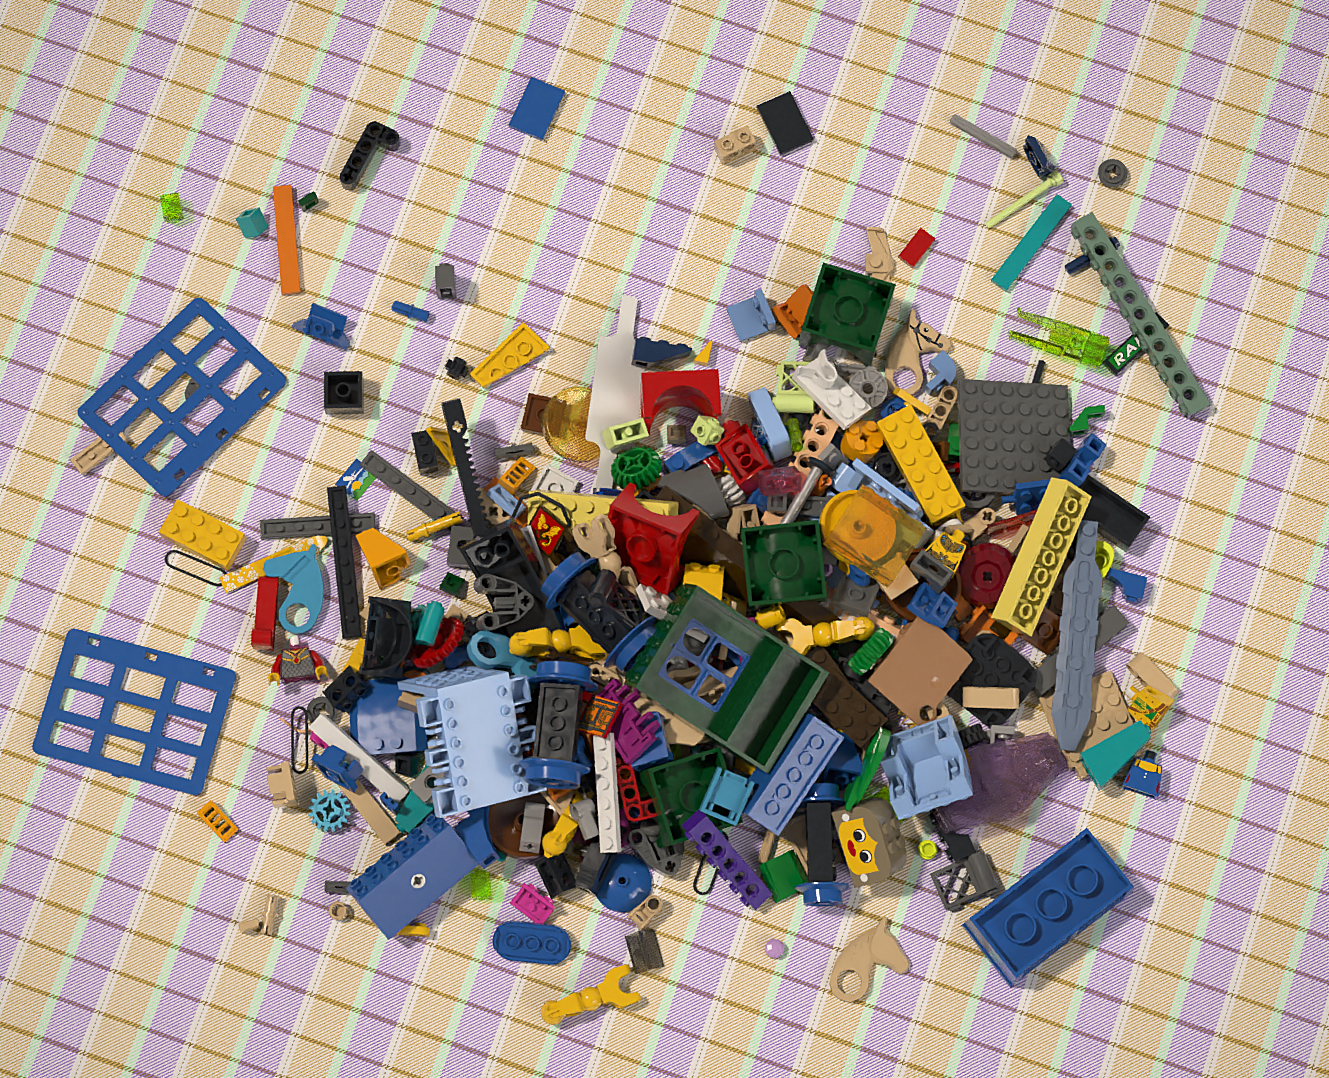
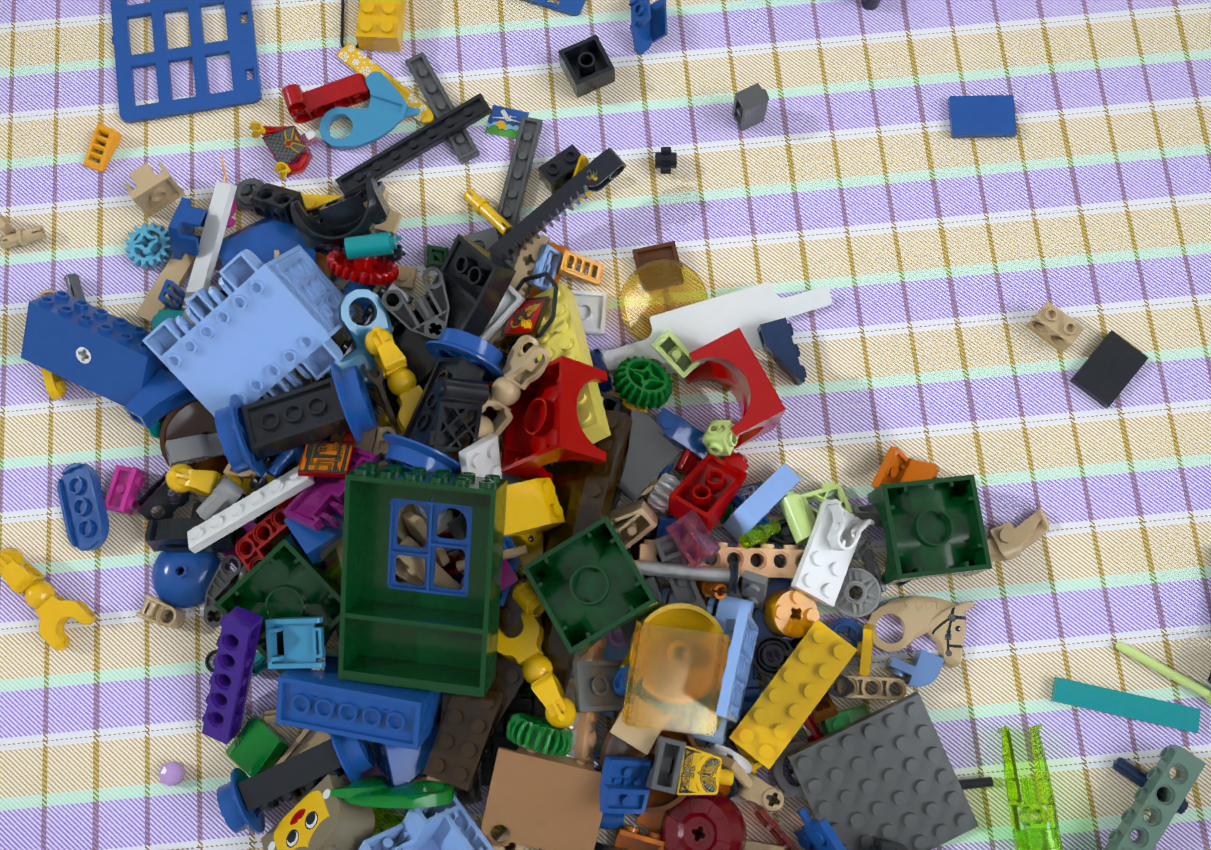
camera: 70 degrees right, 0 degrees up
(292, 739) = (212, 179): black piece -> none
(383, 557) = (430, 175): light orange slope -> none
(410, 311) = (704, 93): blue axle -> none
(481, 885) = (123, 429): clear neon green brick -> none
(510, 355) = (709, 207): yellow wing -> none
(514, 451) = (606, 255): dark grey pin -> none
(644, 951) = (117, 631): clear smoke panel -> none
(676, 434) = (703, 409): dark tan tile -> none
(703, 357) = (804, 400): yellow piece -> none
(751, 316) = (872, 429): medium blue bracket -> none
(916, 247) = (1047, 575): red tile -> none

